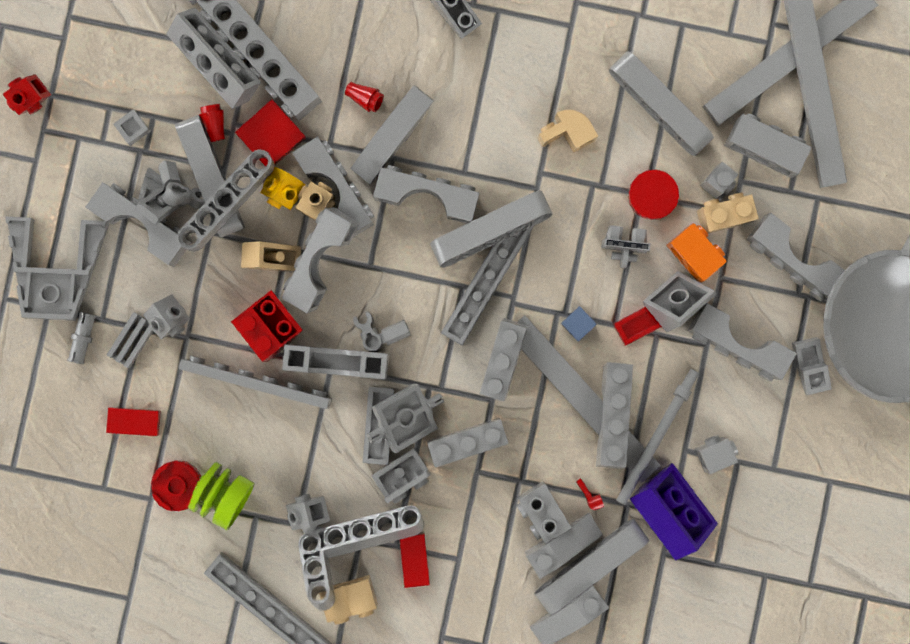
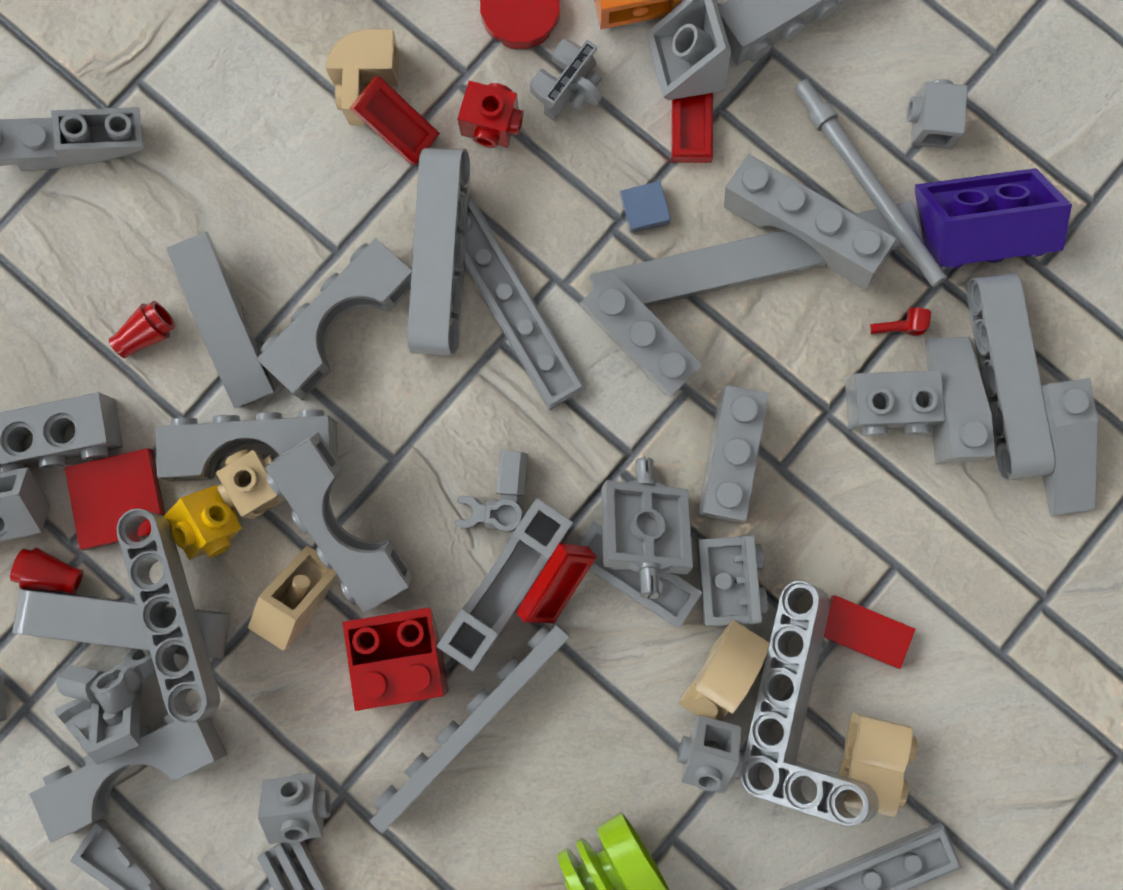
camera: 60 degrees left, 5 degrees down
(350, 387) = (556, 583): none -> red tile
(353, 499) = (726, 673): none -> tan brick
(549, 164) = (394, 120): none -> red tile
(585, 205) = (490, 114): none -> red brick

